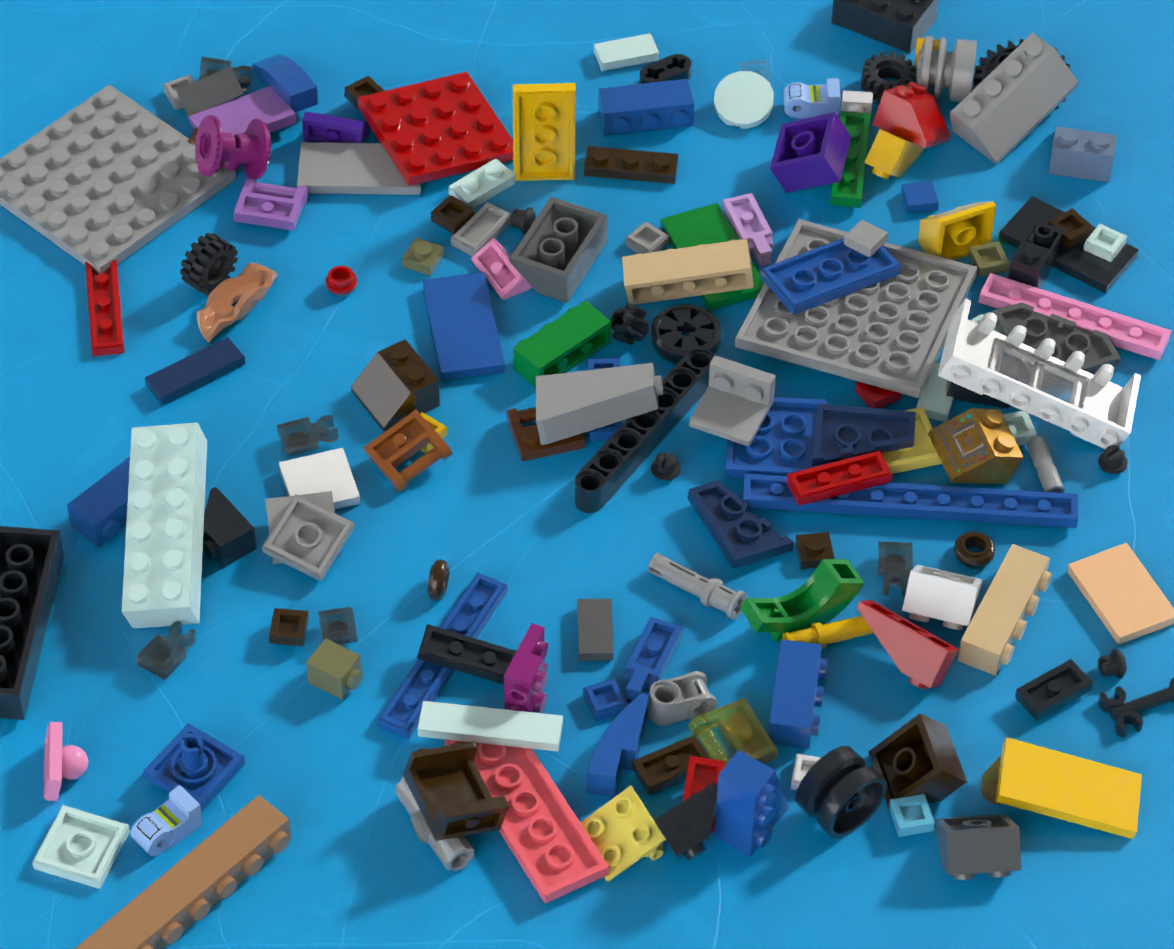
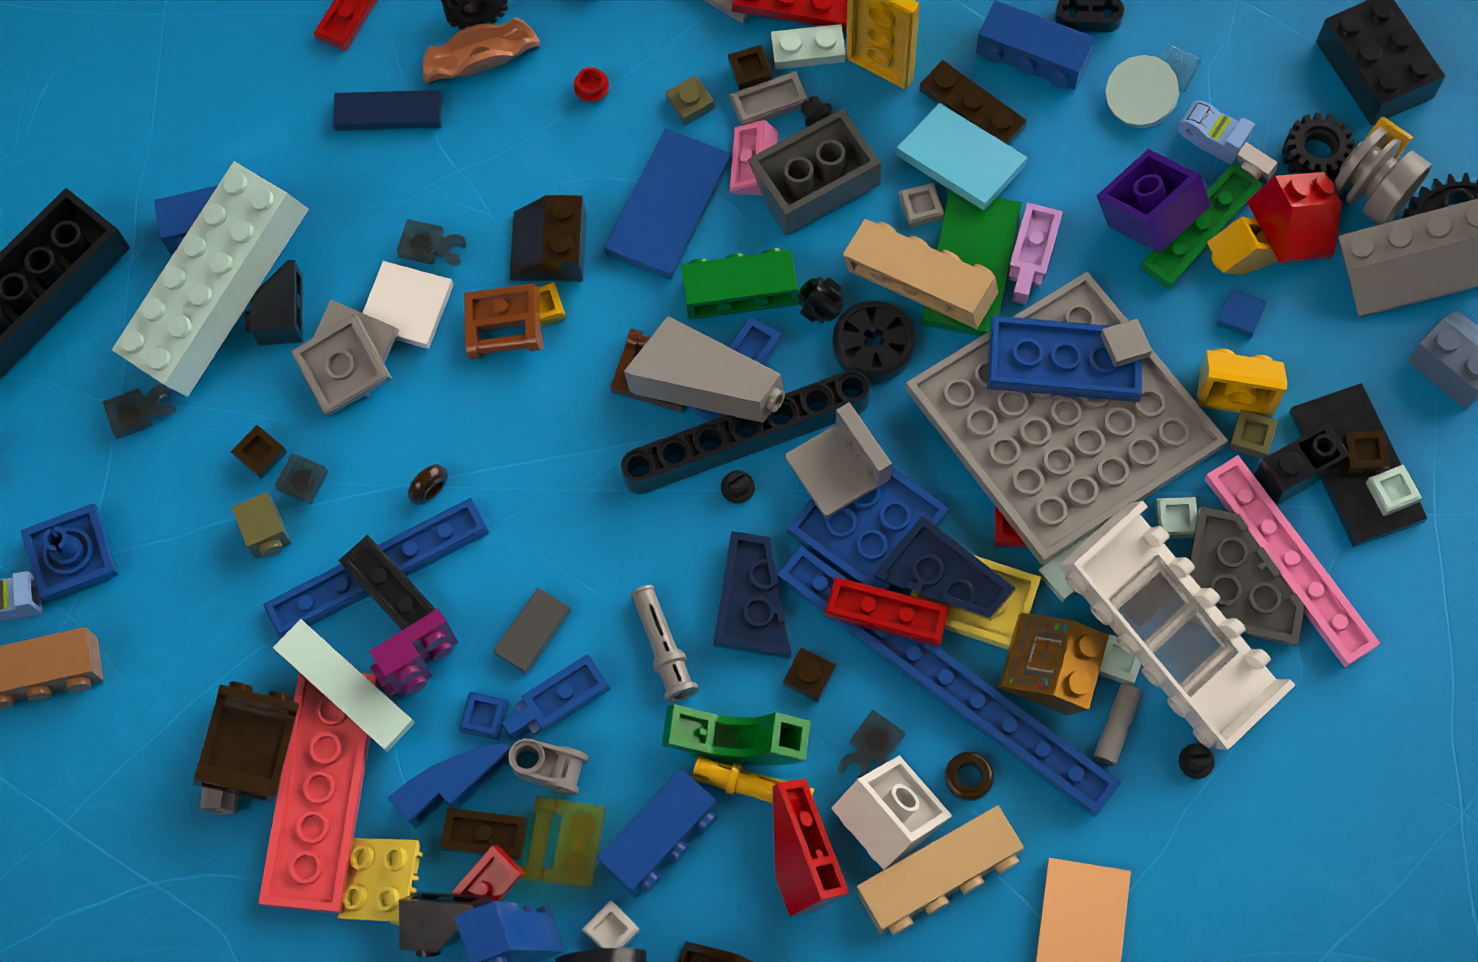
camera: 40 degrees right, 20 degrees up
(652, 195) = (961, 156): none -> medium azure tile

